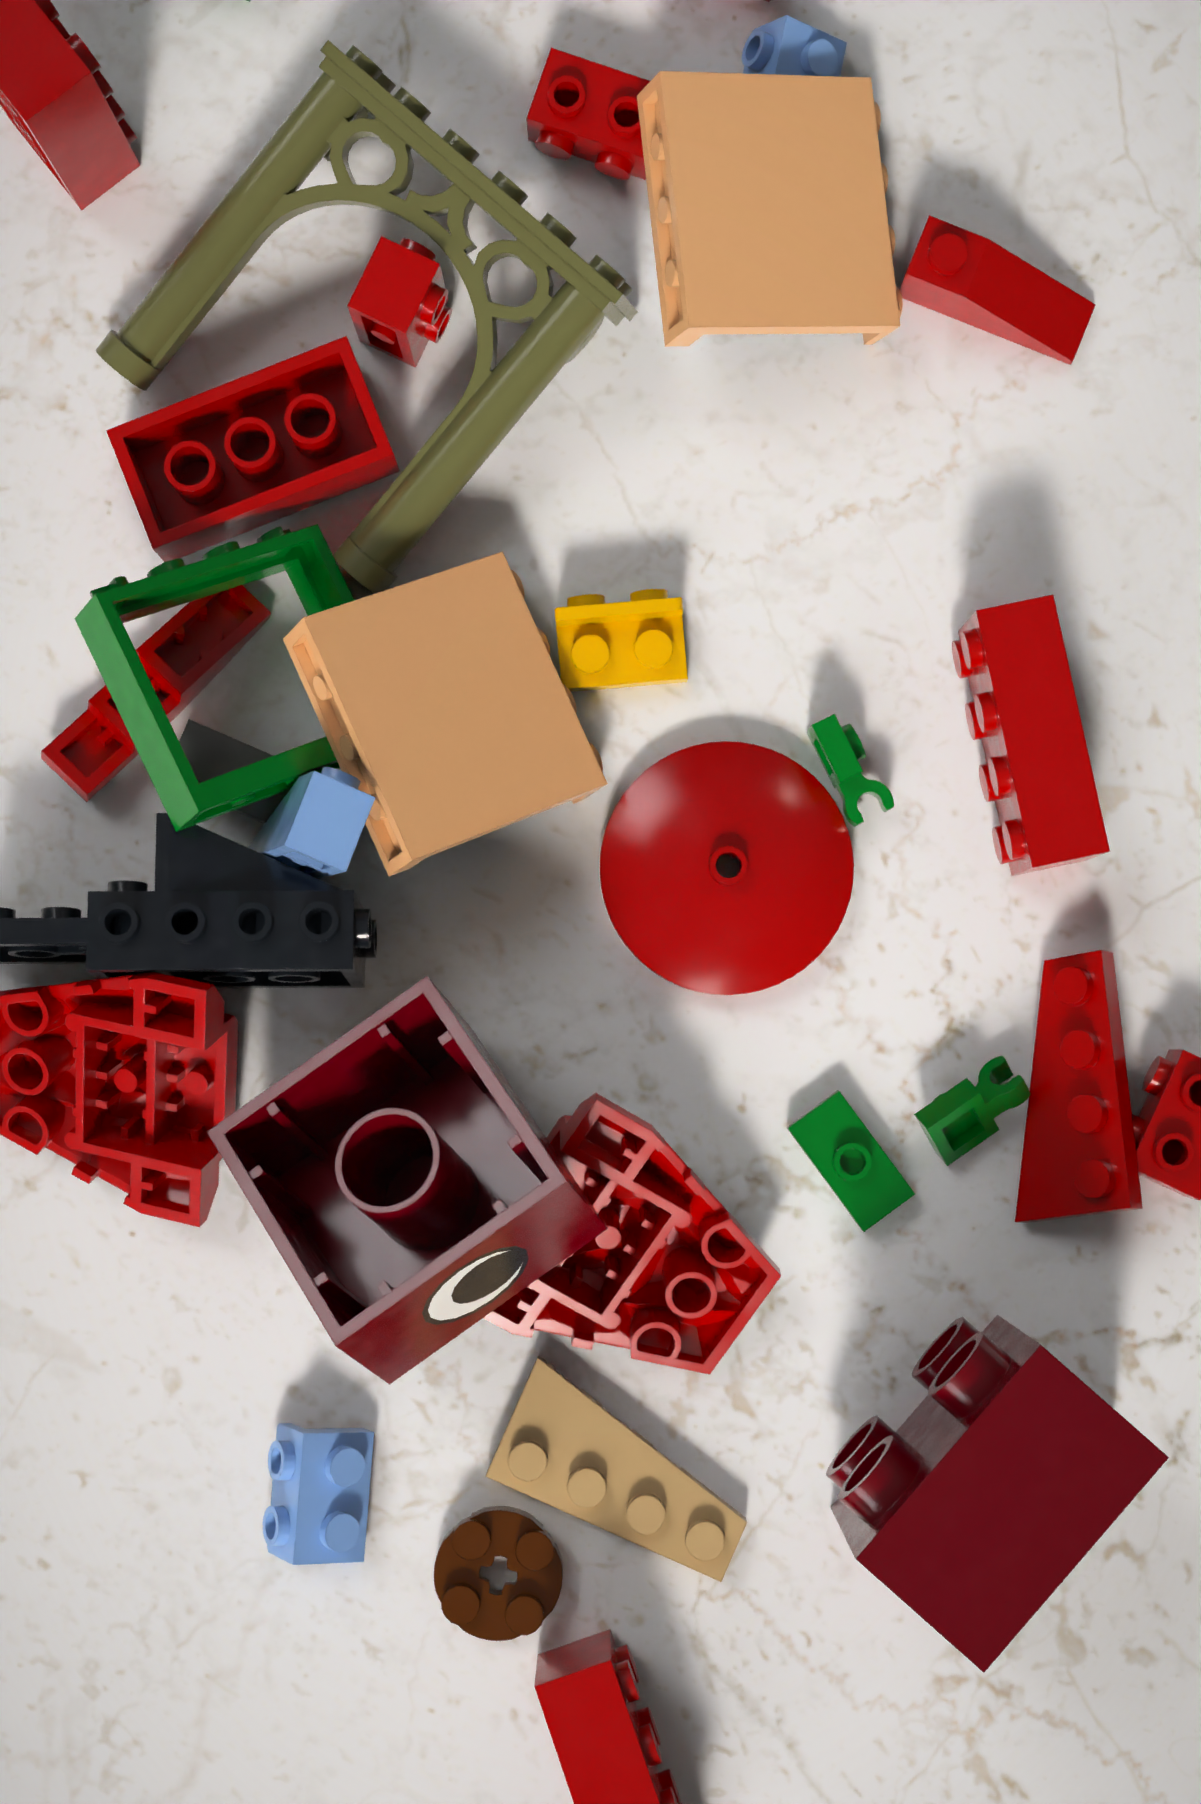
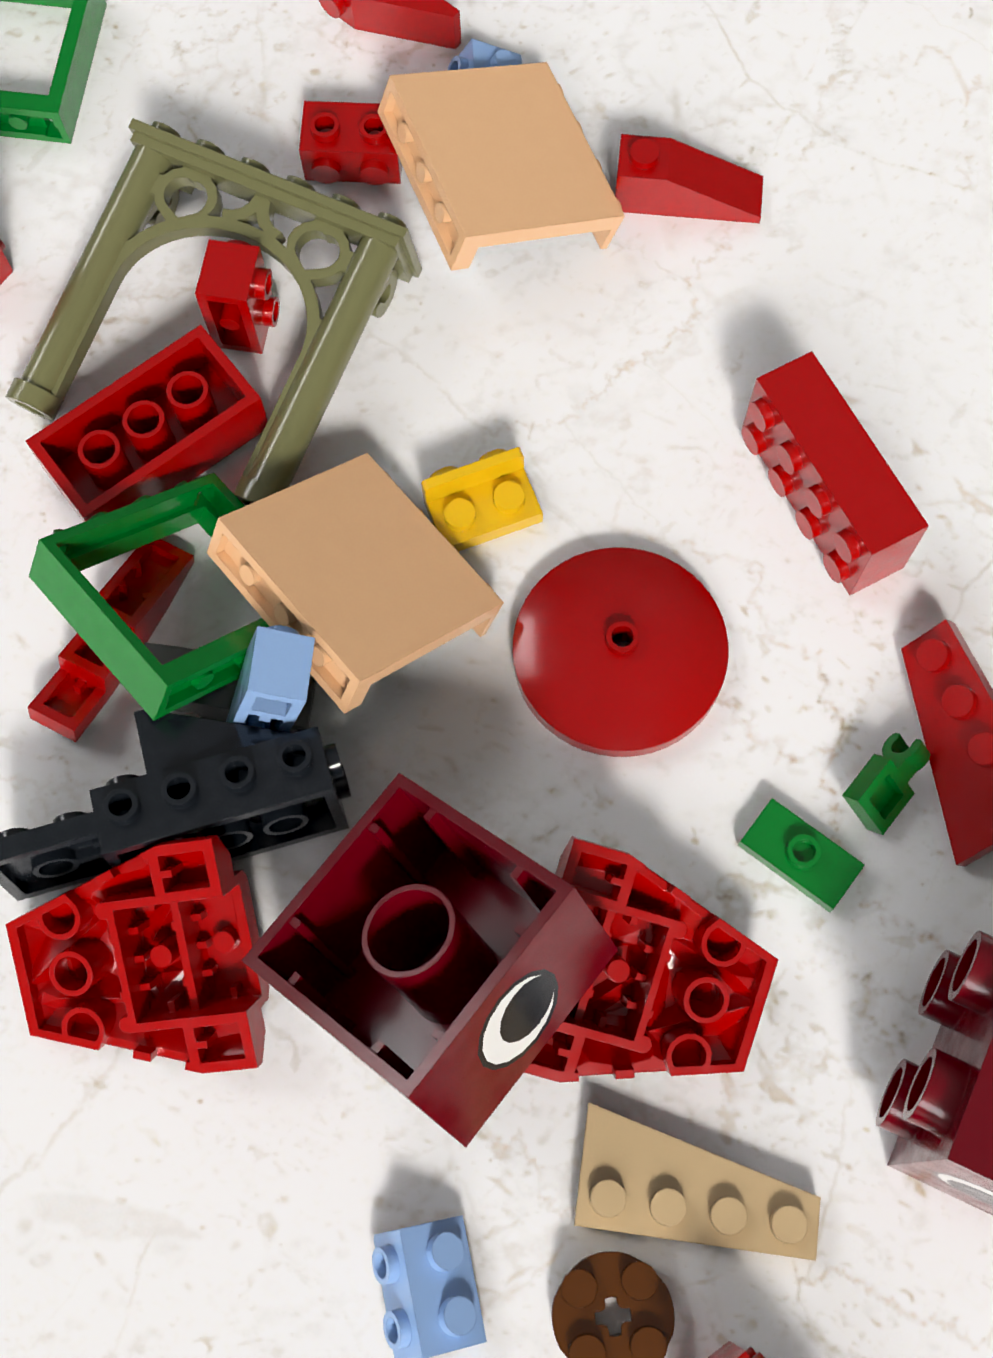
camera: 15 degrees left, 15 degrees down
(839, 754) = (685, 538): green plate -> none

